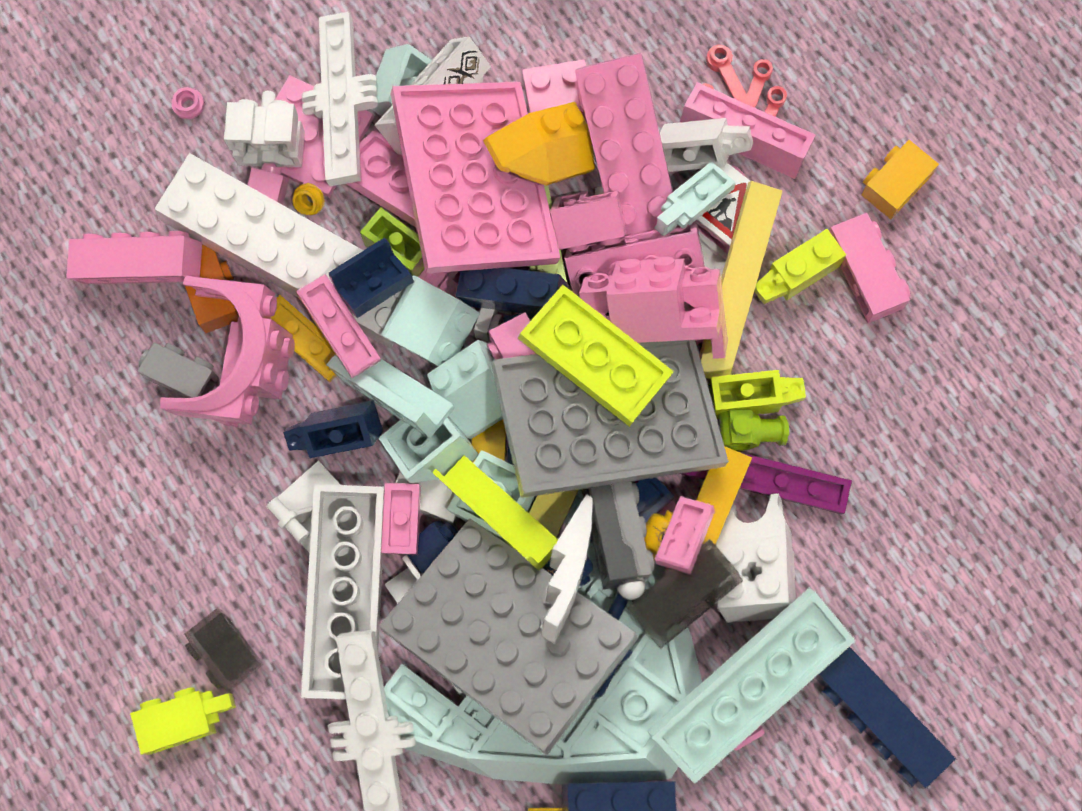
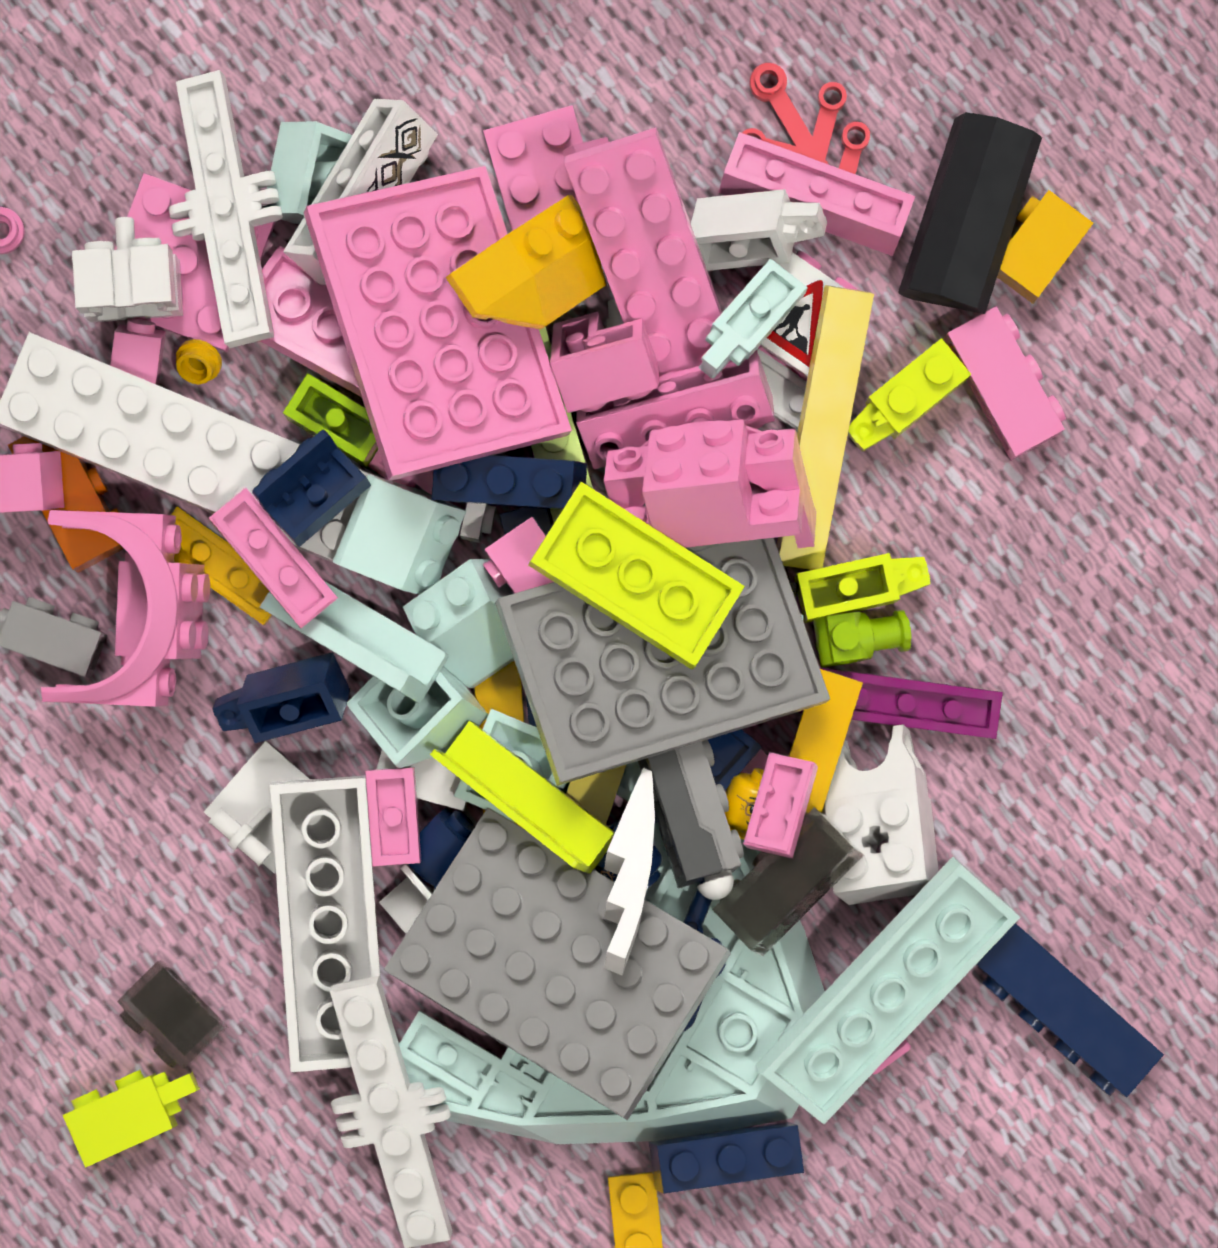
camera: 10 degrees left, 10 degrees up
(853, 150) = (970, 213): none -> black piece

